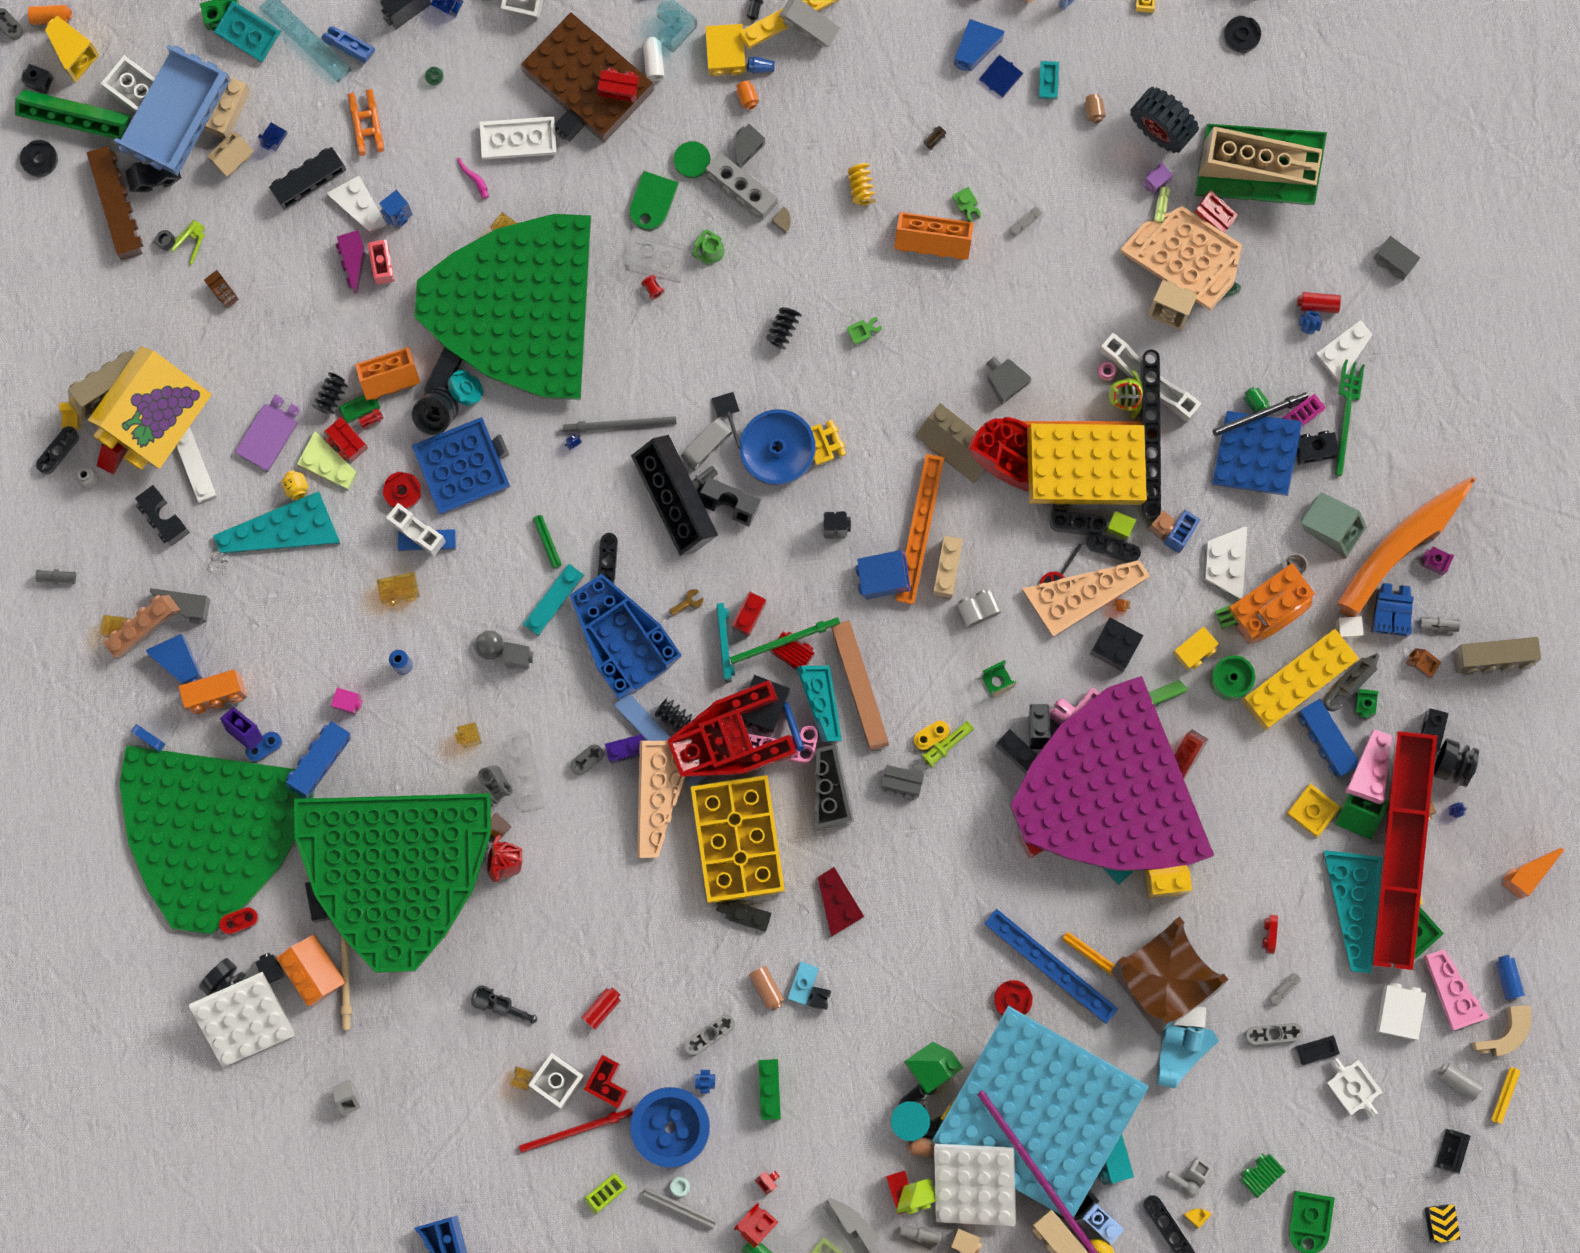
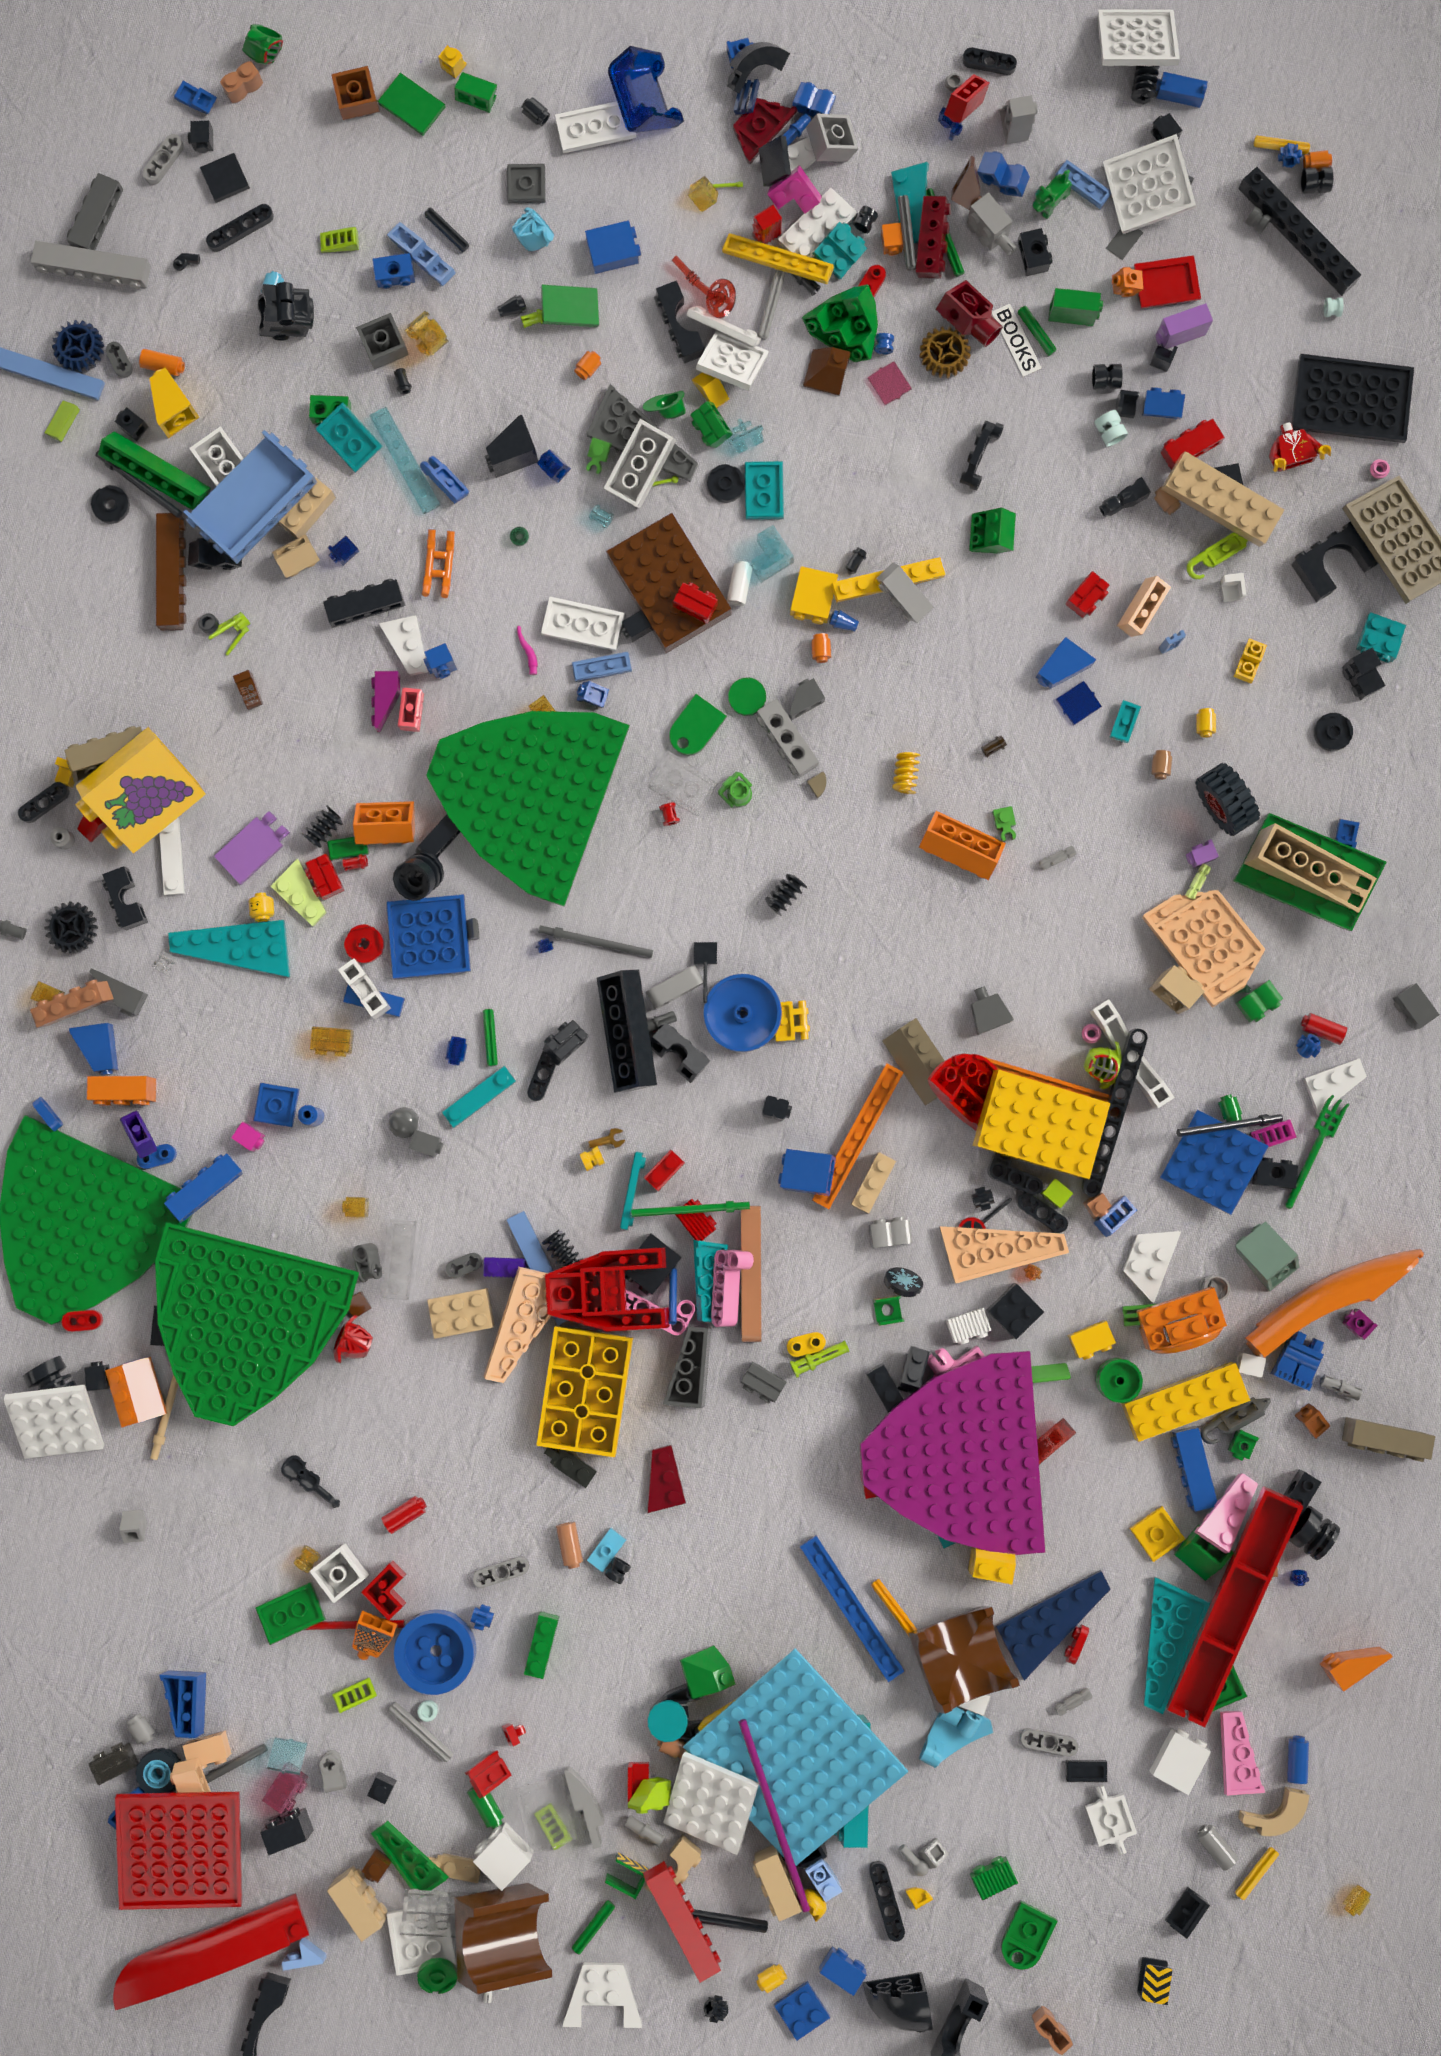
camera: 20 degrees right, 5 degrees up
(63, 131) = (143, 487): none -> black bar
(117, 564) = (75, 921): none -> black gear
(364, 664) = (276, 1105): none -> blue plate
(465, 388) = (455, 861): teal tile -> none
(505, 35) = (601, 516): none -> clear light blue bush
(519, 562) = (456, 1050): none -> clear blue brick
(521, 1134) = (290, 1613): none -> green tile
(546, 198) = (592, 694): none -> bracket
(547, 172) = (601, 666): none -> medium blue tile
(598, 803) = (461, 1313): none -> tan brick
(606, 1129) = (372, 1635): none -> orange torso
(619, 524) = (564, 1042): none -> black brick
(622, 637) = (533, 1156): blue wedge -> none
(678, 623) = (592, 1158): none -> yellow wheel
(840, 700) = (726, 1285): none -> bright pink beam
(861, 331) = (860, 920): bright green plate -> none
(1004, 648) = (903, 1282): none -> black tile
(1013, 994) = (805, 1628): red tile -> none
(1054, 551) = (982, 1198): none -> black gear
(1077, 671) = (968, 1325): none -> white brick
(1123, 59) = (1206, 722): none -> yellow brick
(1215, 212) = (1249, 906): plate -> none
(1234, 929) = (1042, 1627): none -> dark blue wing
(1252, 295) = (1259, 1001): none -> green brick
(1284, 118) = (1347, 832): none -> blue slope

